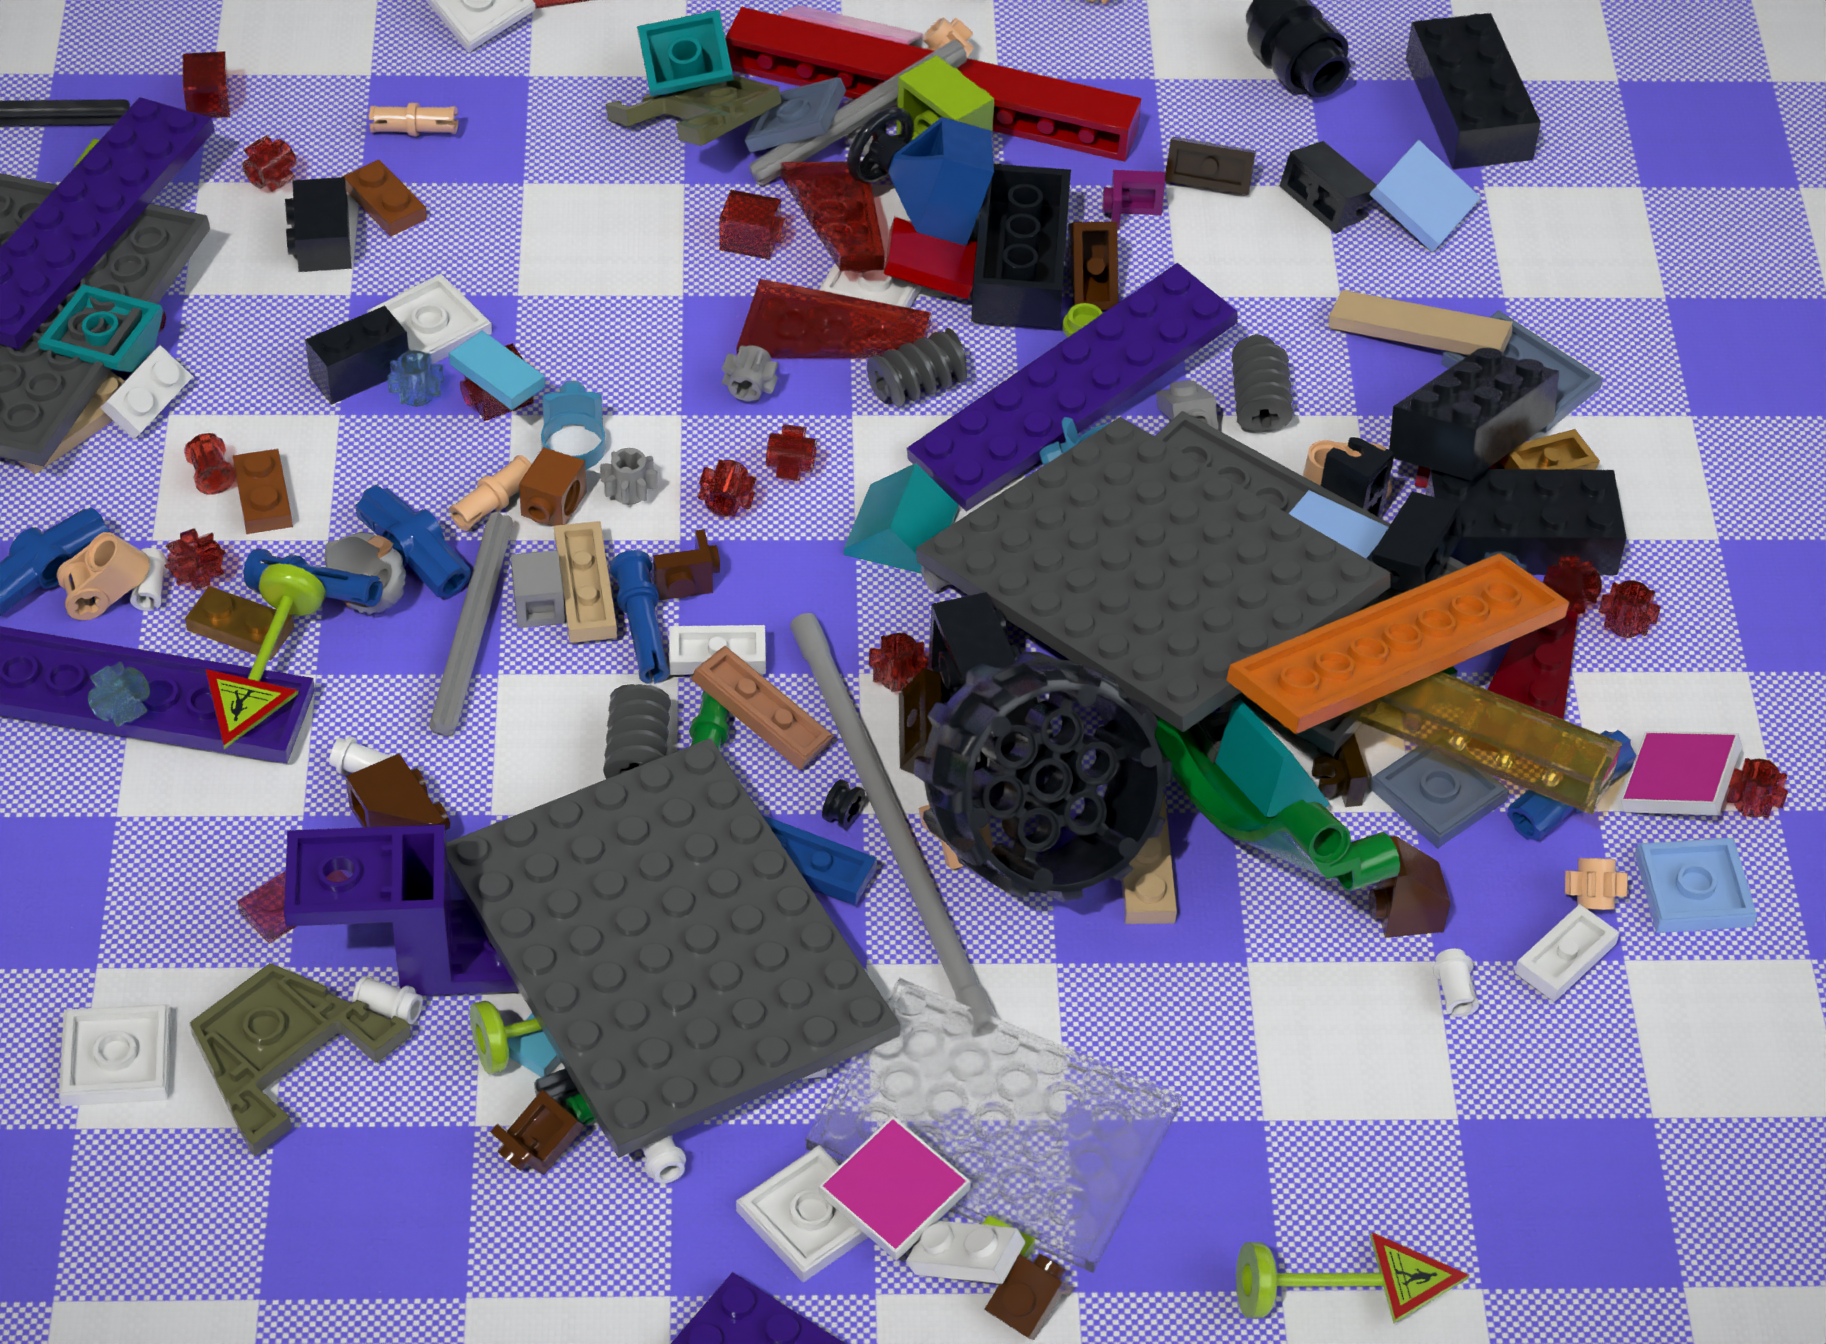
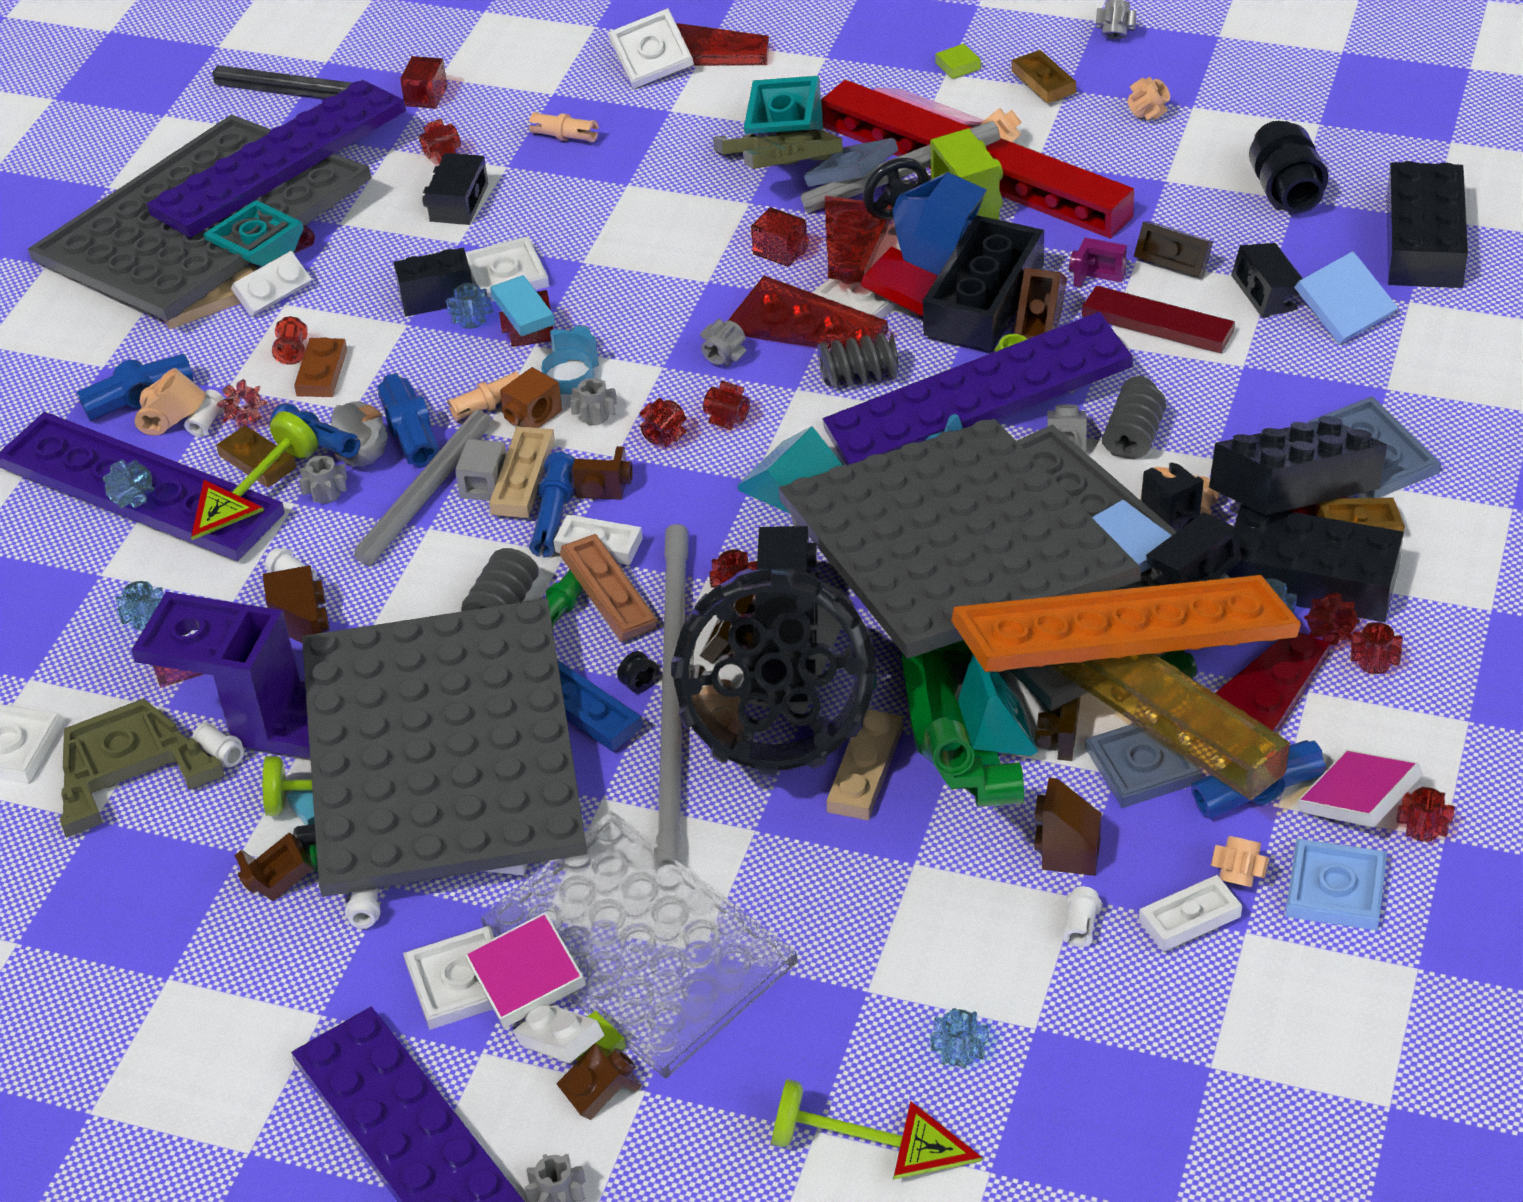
camera: 25 degrees right, 5 degrees down
(202, 845) = (138, 603): none -> clear light blue gear
(347, 638) = (323, 479): none -> light grey gear
(385, 198) = (516, 178): dark orange plate -> none
(1226, 255) = (1160, 319): none -> dark red tile
(1394, 1149) = (959, 1038): none -> clear light blue gear
(1418, 324) = (1294, 394): tan tile -> none

